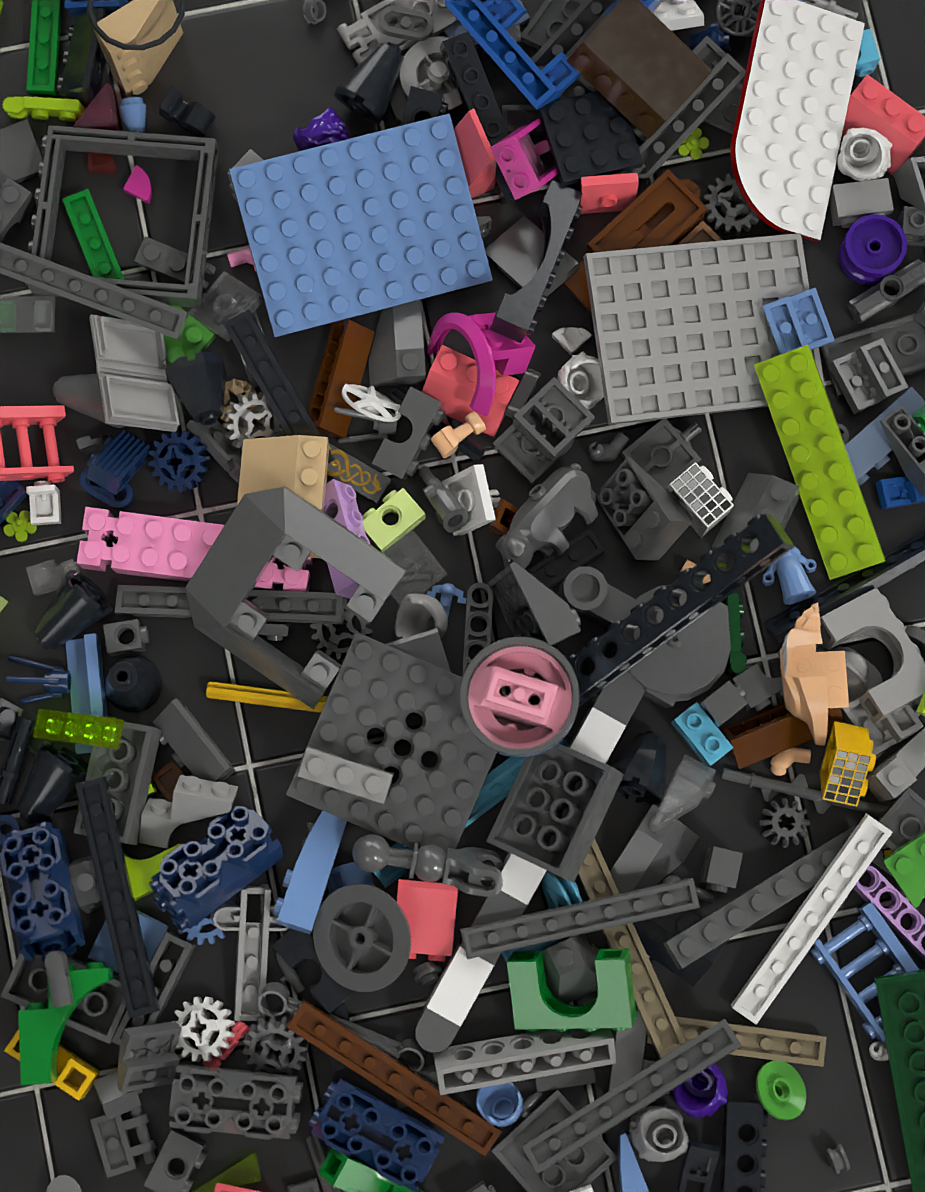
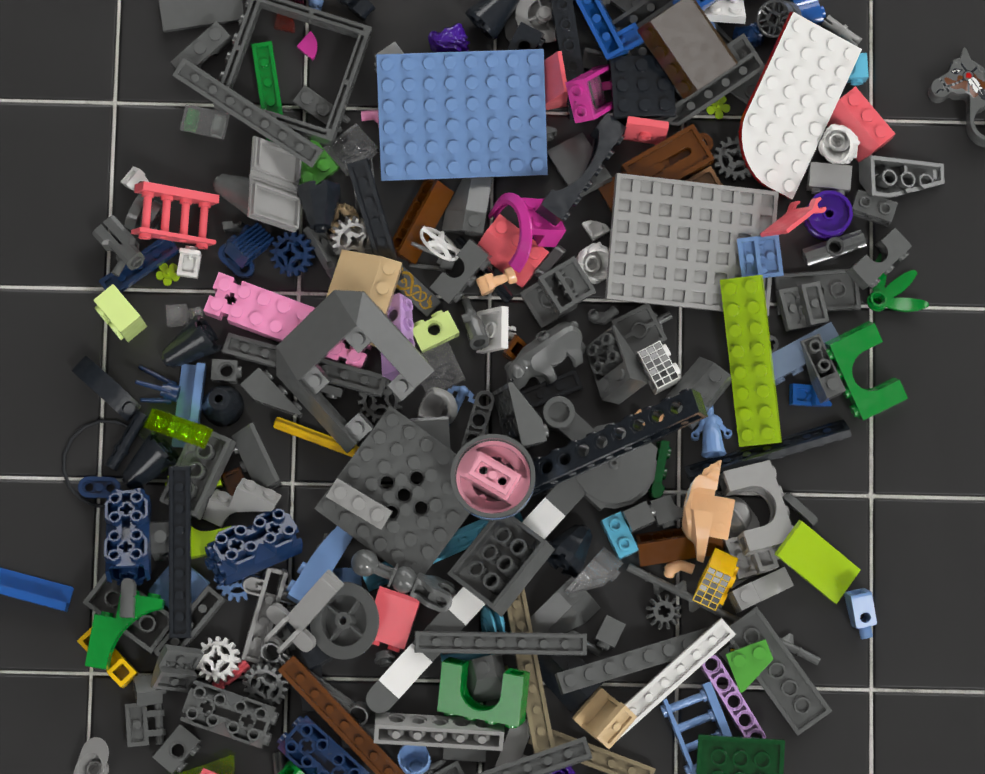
camera: 10 degrees right, 0 degrees up
(185, 653) = (265, 392): none -> dark grey slope
(303, 942) = (303, 614): none -> light grey piece
(743, 986) = (604, 717): none -> tan panel
(830, 262) = (793, 218): none -> coral flag

